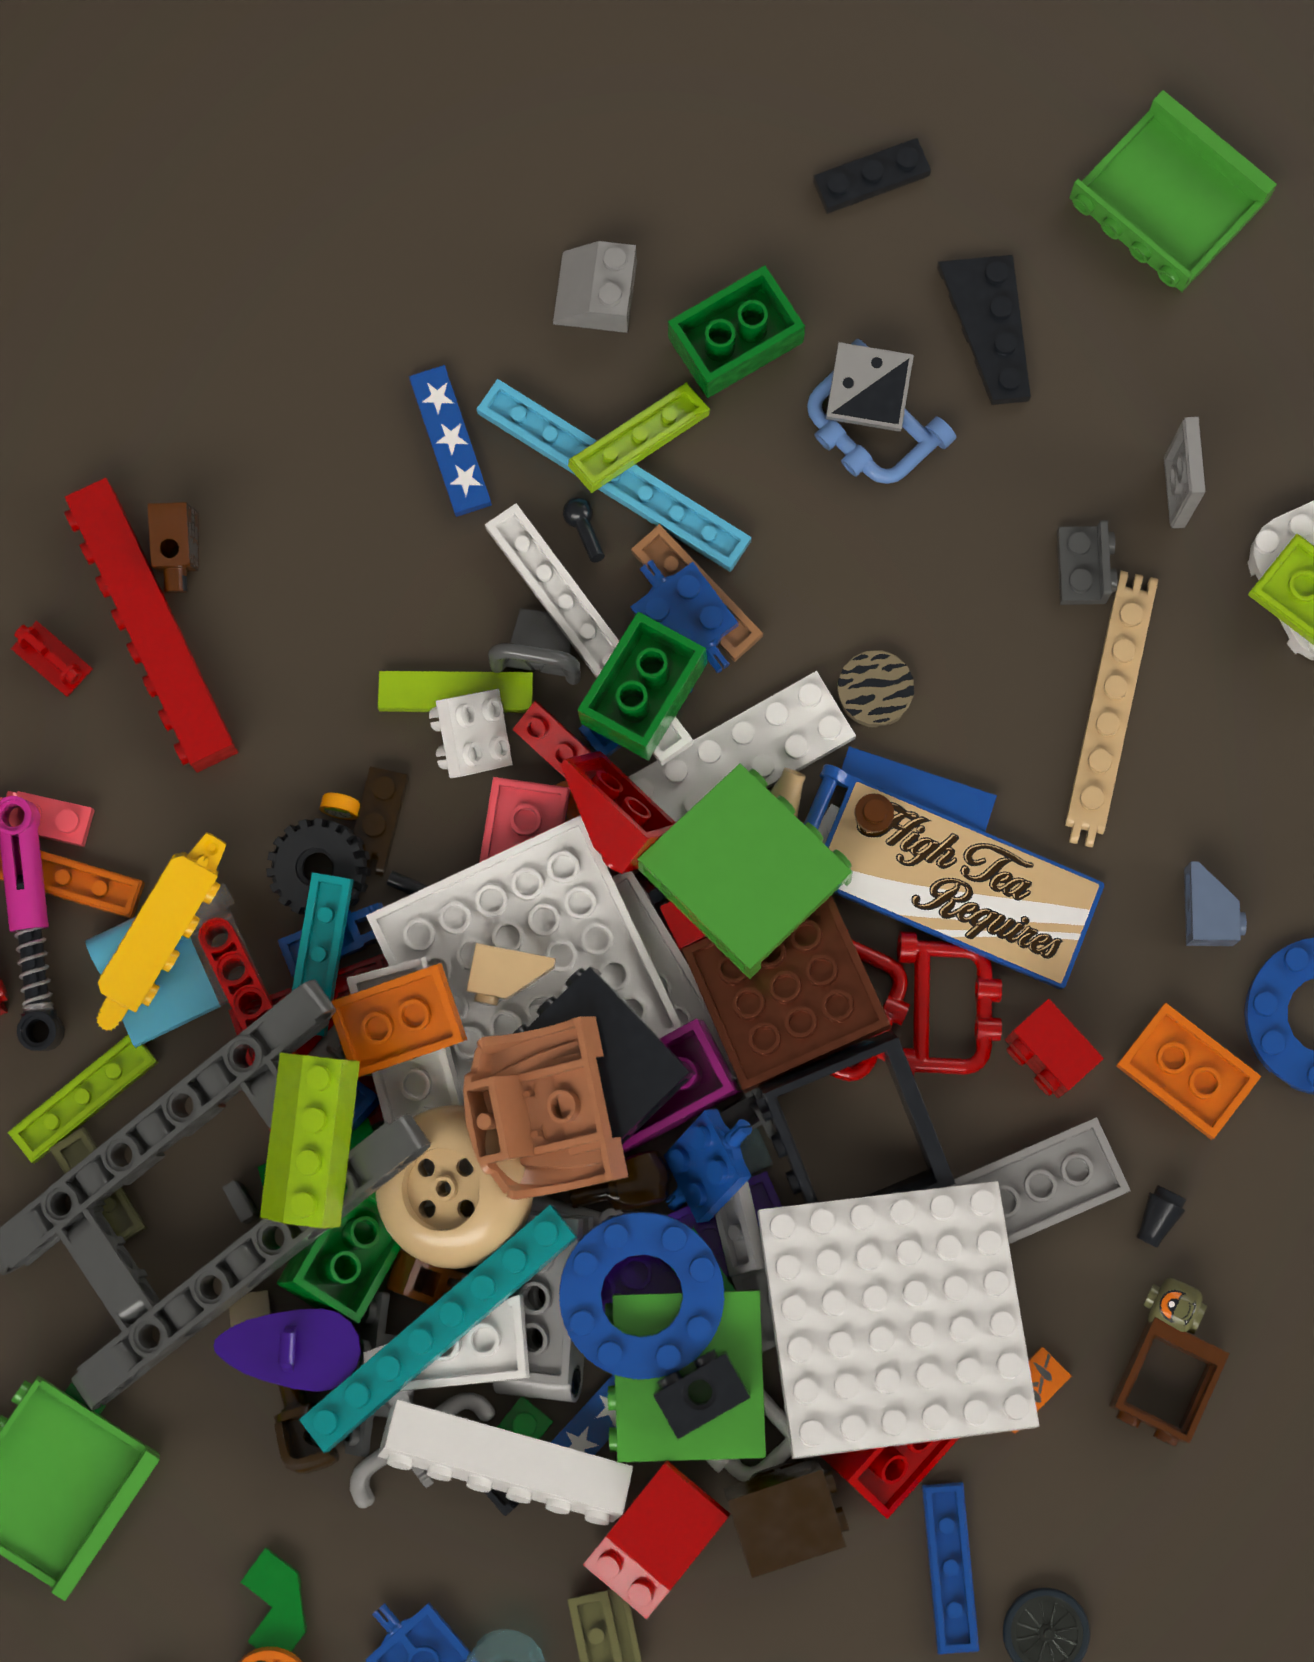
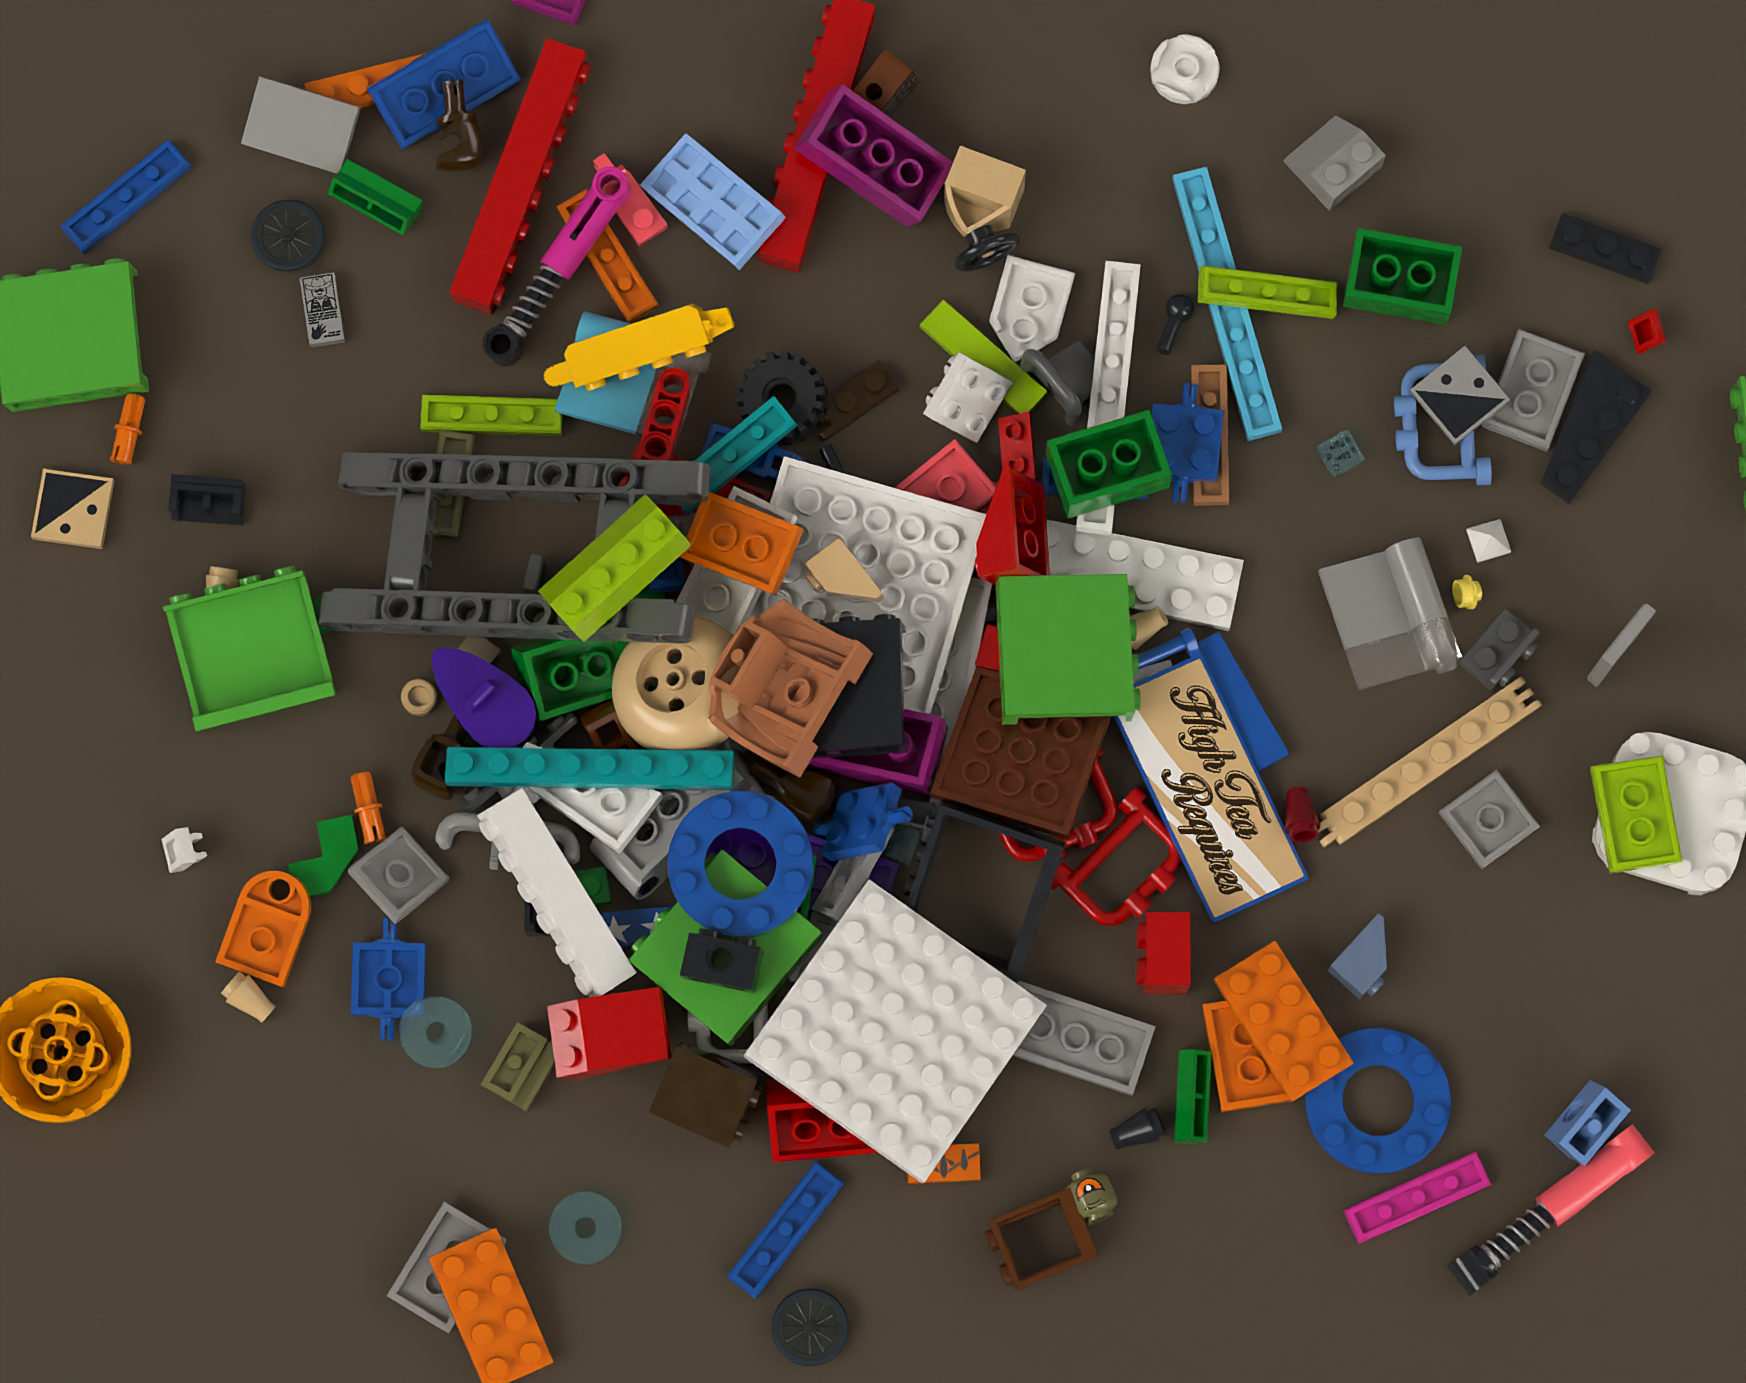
camera: 40 degrees right, 0 degrees up
(50, 657) = (729, 97): red hinge -> none
(113, 755) = (712, 201): none -> light blue plate
(216, 600) = (874, 155): none -> magenta brick
(233, 1393) = (419, 697): none -> tan tile
(273, 1528) = (367, 807): none -> orange axle
(339, 806) = (834, 368): light orange tile -> none
(340, 563) = (981, 200): none -> tan piece
(352, 1564) = (398, 875): none -> light grey tile
(407, 317) = (1184, 69): none -> white tile
(450, 441) = (1136, 181): blue tile -> none
(454, 615) = (1029, 305): none -> white tile
(814, 517) = (1340, 453): none -> clear light blue tile
(874, 813) = (1190, 689): reddish brown plate -> none
(875, 688) = (1274, 608): dark tan tile -> none
(917, 321) = (1538, 385): none -> light grey tile
(966, 211) = (1646, 331): none -> red slope
(974, 611) = (1390, 615): none -> light grey door
(994, 485) = (1488, 540): none -> white slope
(1016, 541) = (1466, 592): none -> light yellow plate
(1053, 838) = (1301, 817): none -> dark red cone
(1179, 1149) = (1192, 1096): none -> green piece
(1196, 1019) = (1283, 1021): none -> orange plate
(1200, 707) = (1489, 819): none -> light grey tile

